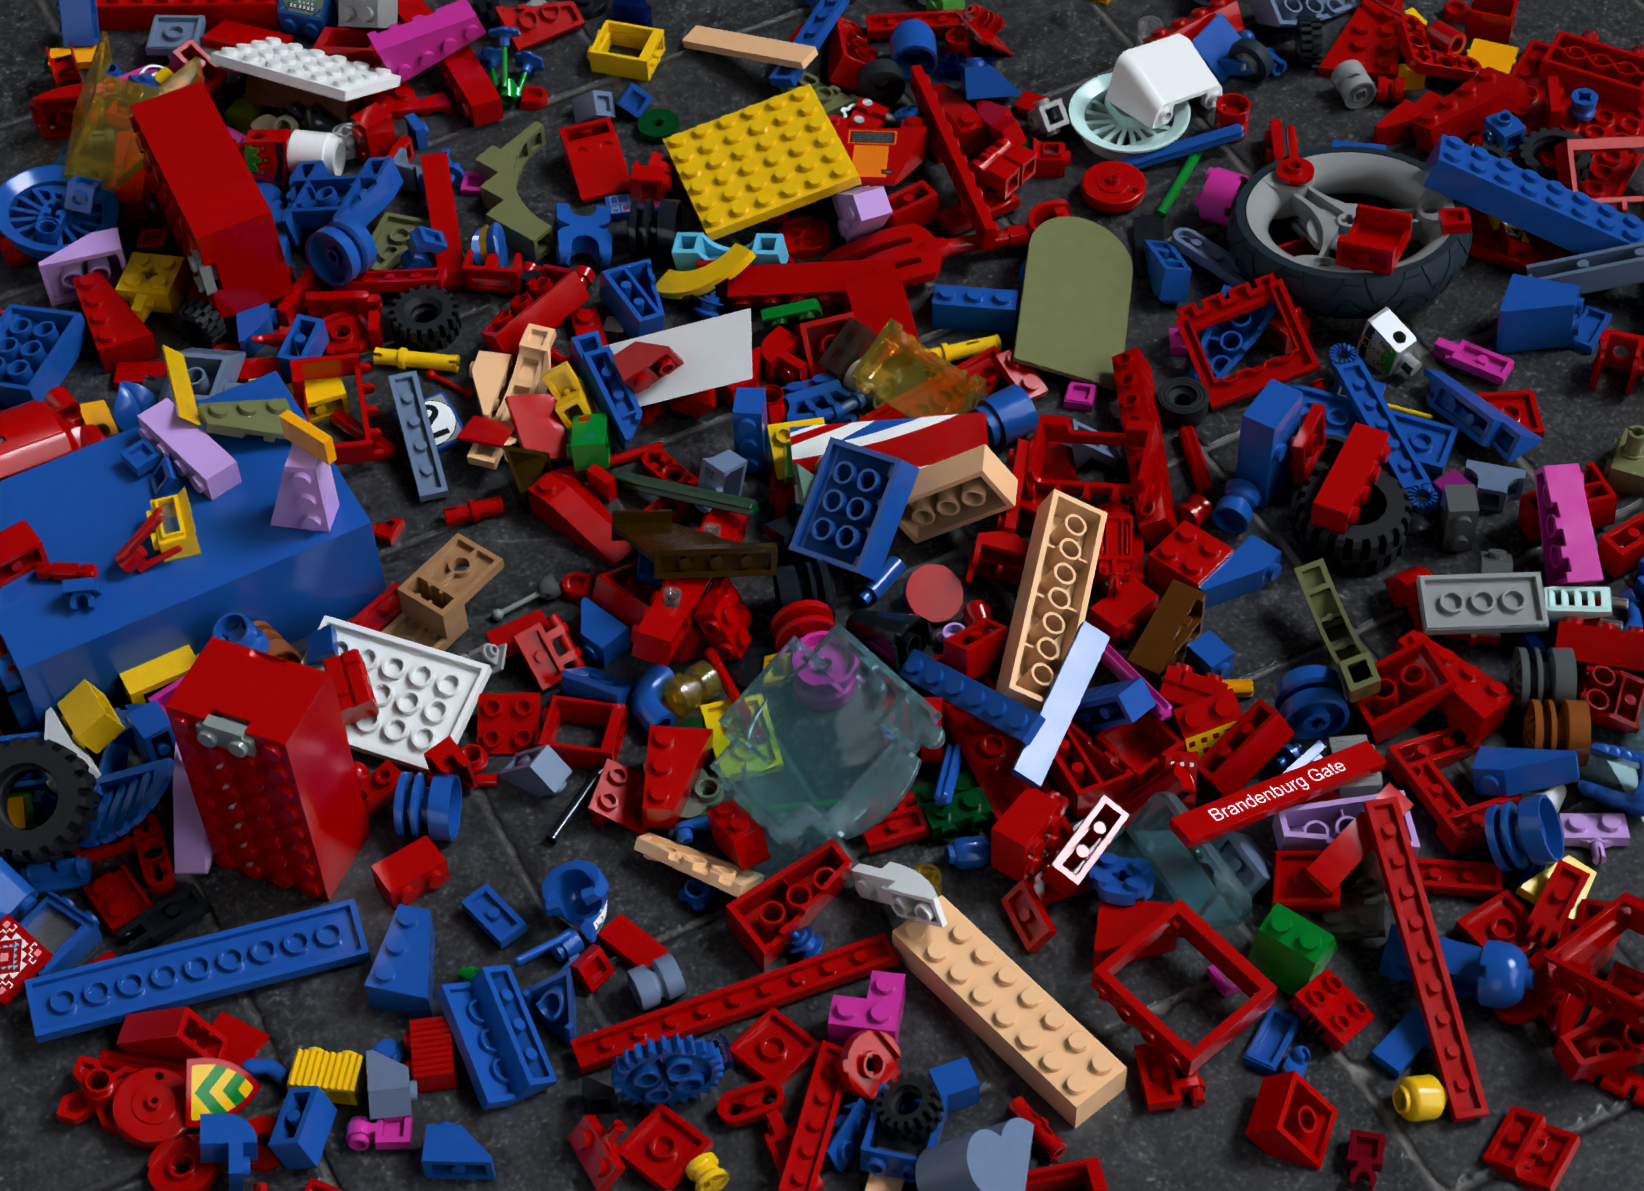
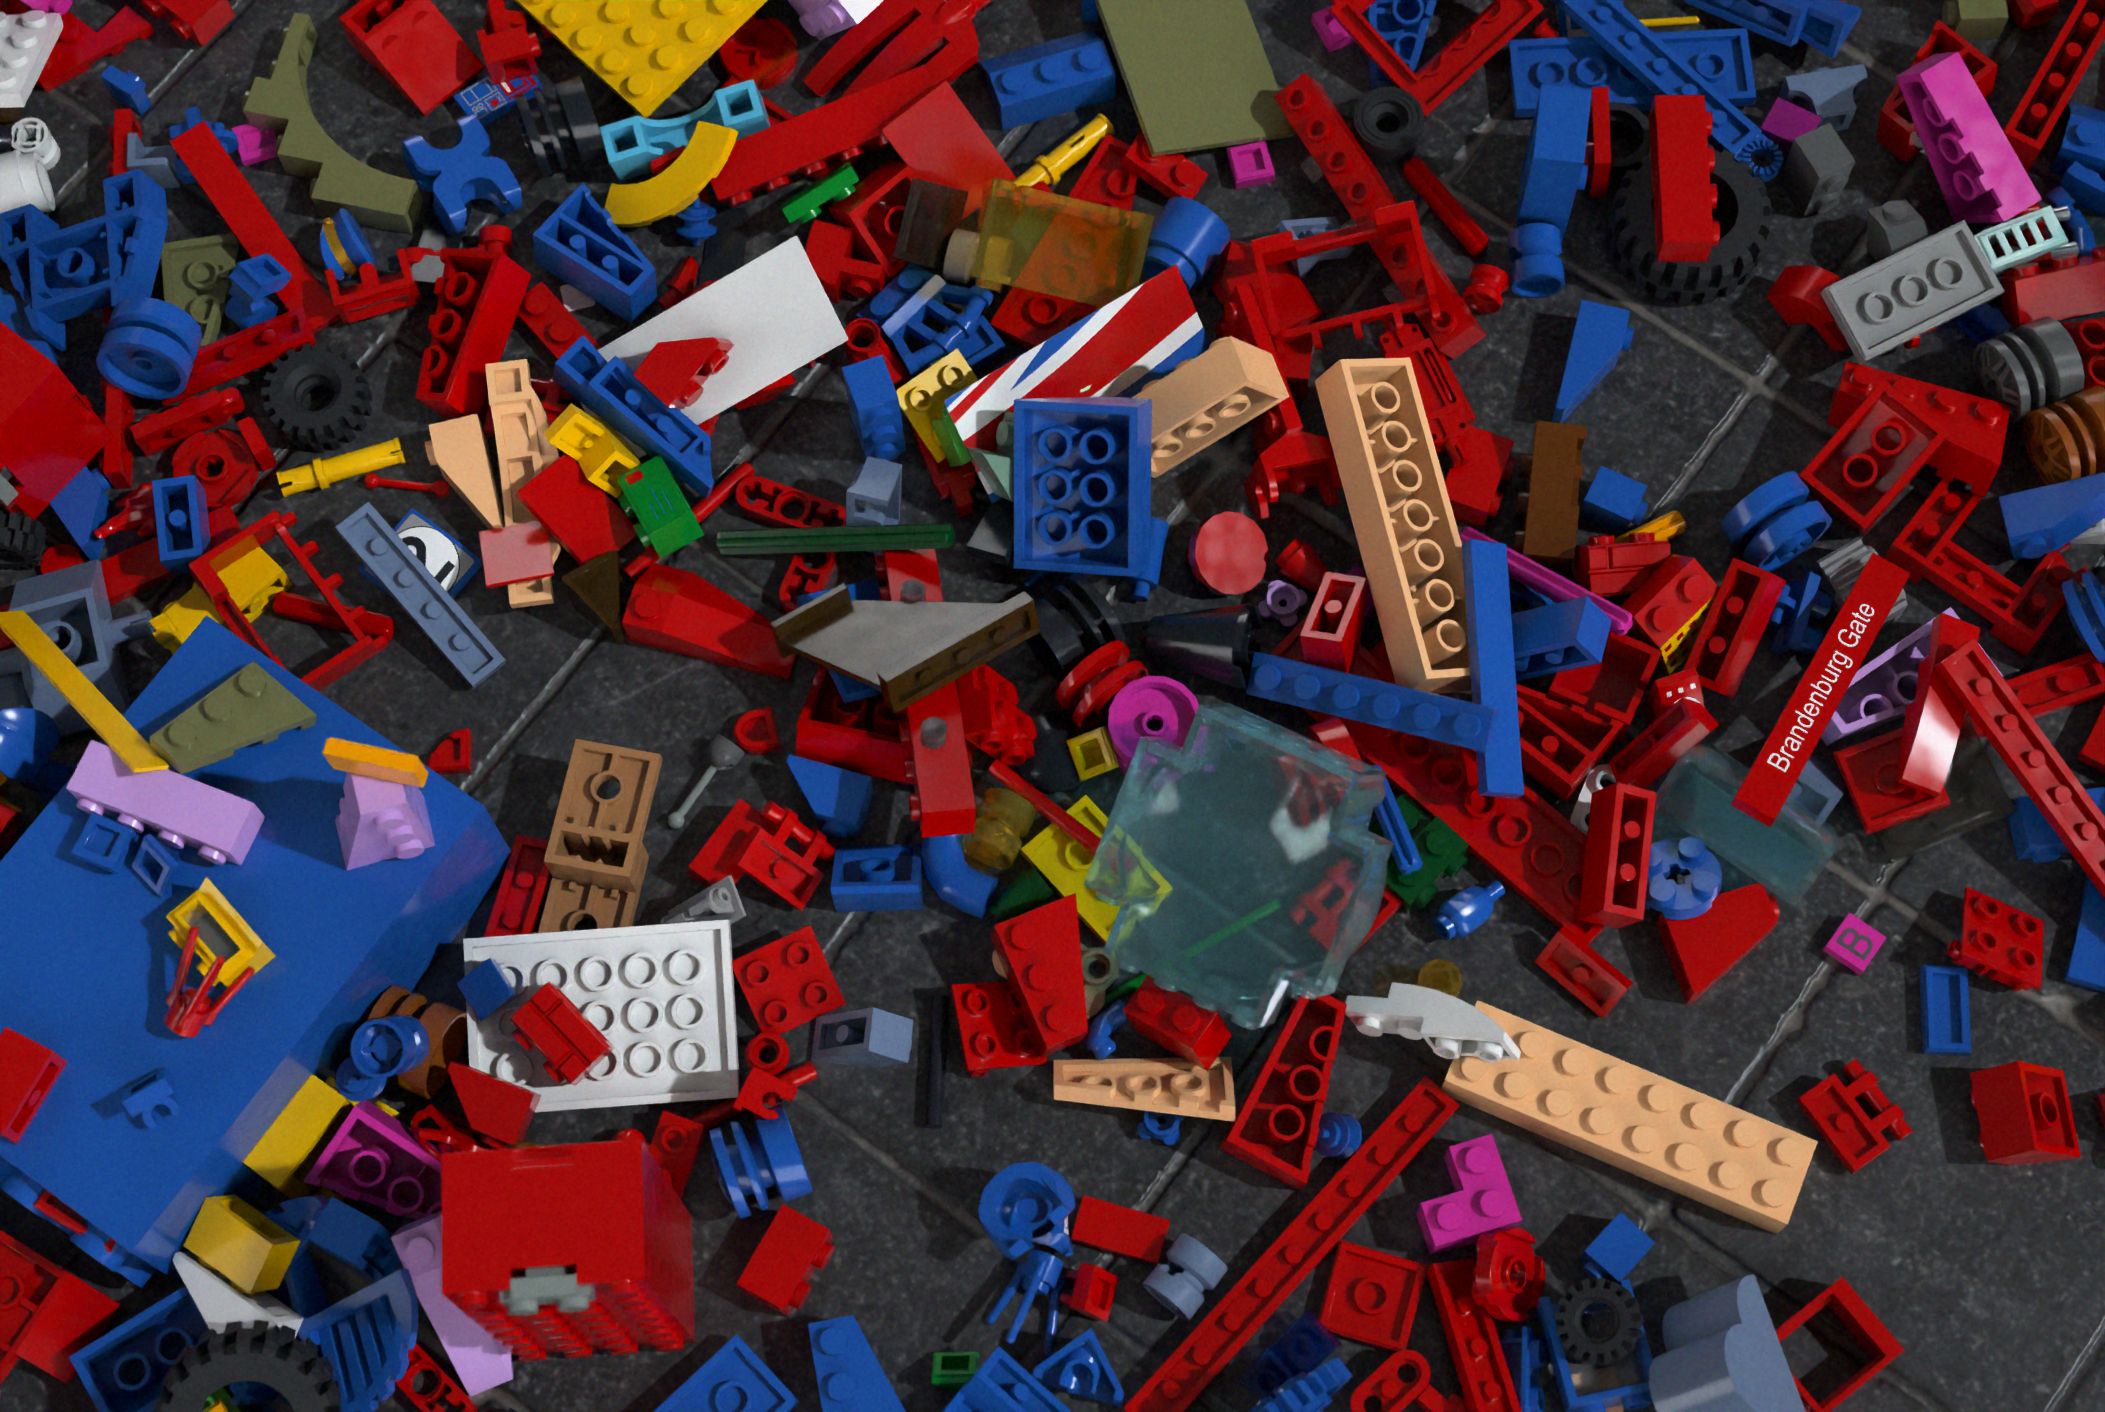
camera: 25 degrees left, 20 degrees up
(65, 570) = (106, 1071): red axle -> none
(373, 132) = (75, 125): red brick -> none
(473, 510) = (555, 674): red pin -> none
(494, 916) = (926, 1272): blue plate -> none
(587, 712) = (881, 921): red window -> none
(602, 483) = (706, 561): red tile -> none
(1027, 833) = (1544, 868): red hinge -> none
(1043, 1135) = (1739, 1261): red pin -> none
(1186, 556) = (1520, 370): red brick -> none
(1219, 953) = (1856, 938): red window -> none
(1290, 949) = (1918, 888): green slope -> none
(1296, 1060) = (1988, 1037): blue arm -> none
(1336, 632) = (1830, 469): olive arch -> none

